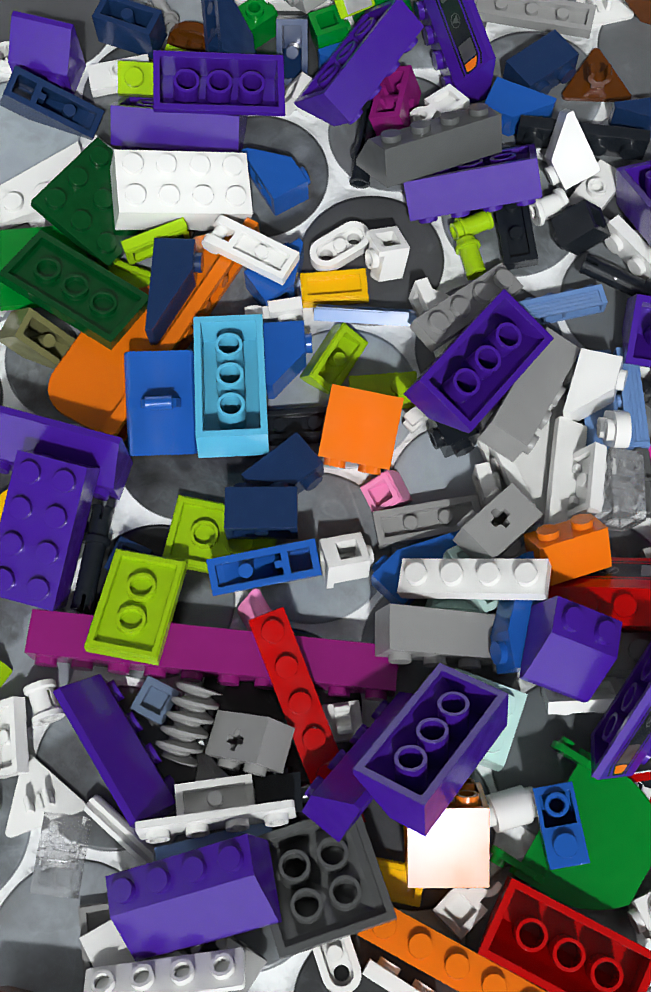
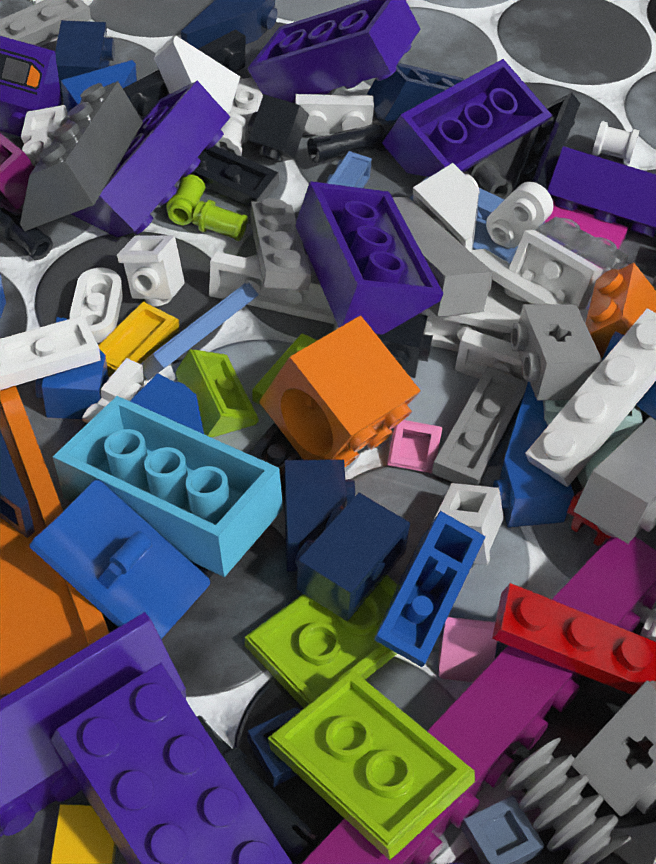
camera: 60 degrees left, 20 degrees down
(596, 82) = (137, 42): reddish brown piece -> none

